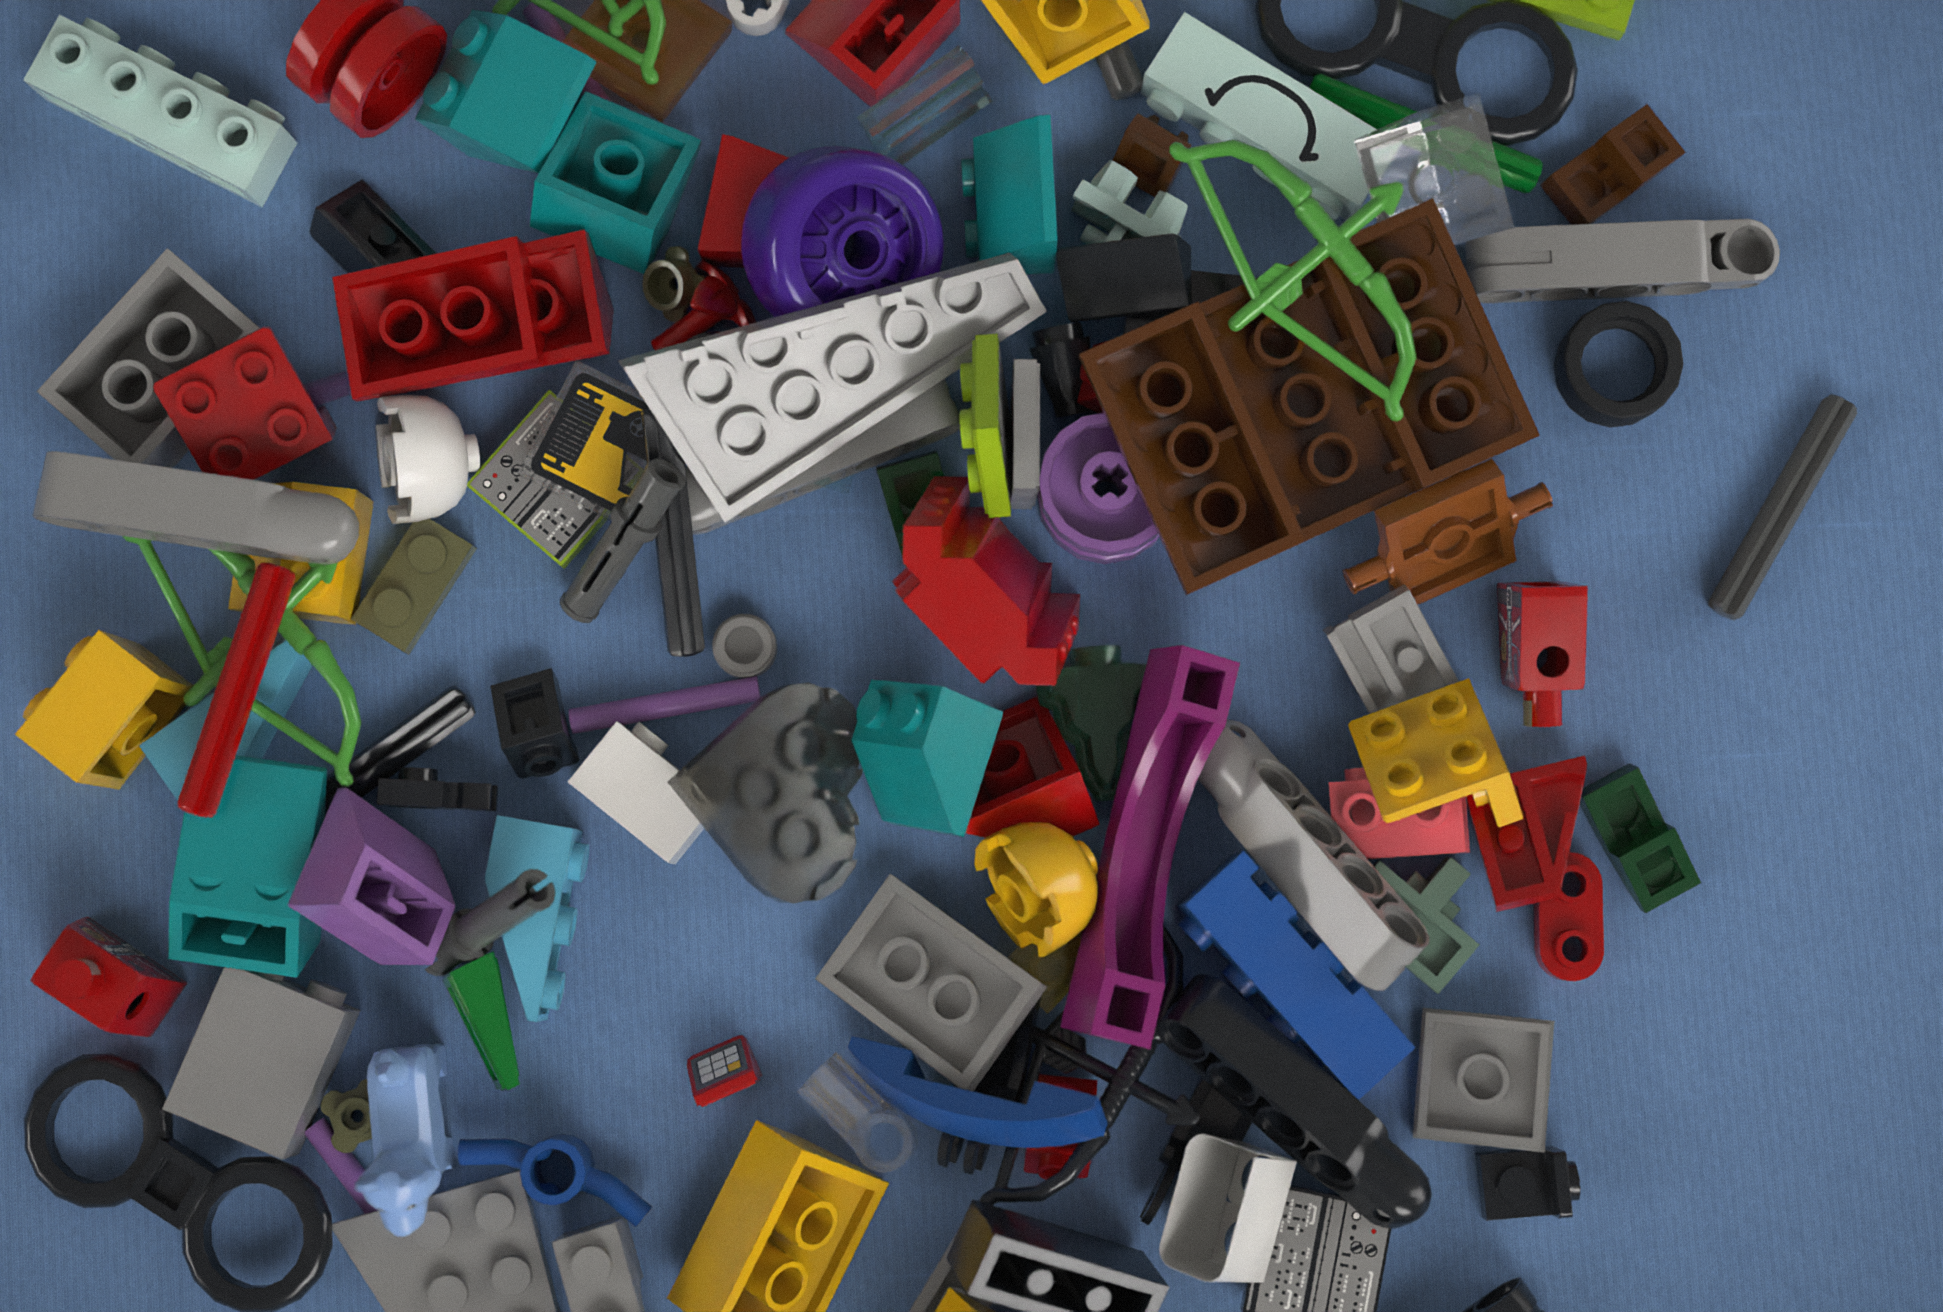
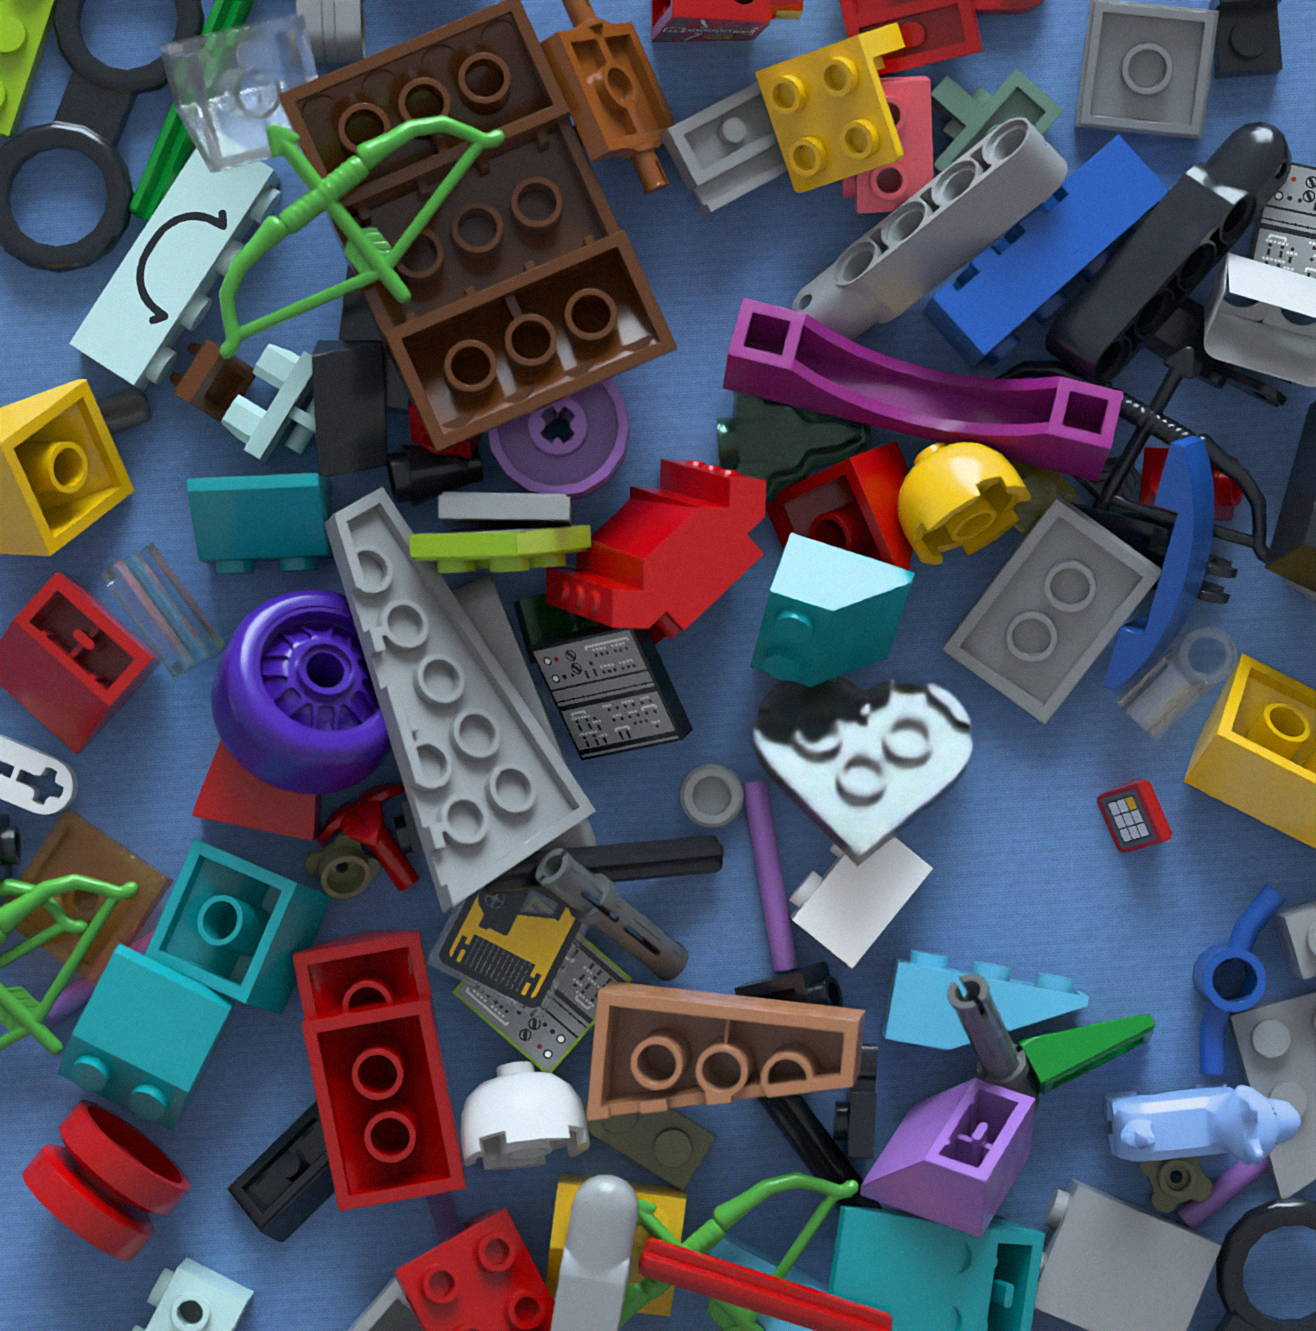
camera: 90 degrees left, 5 degrees up
(486, 638) = (709, 1048): none -> nougat wedge
(845, 540) = (611, 690): none -> tile

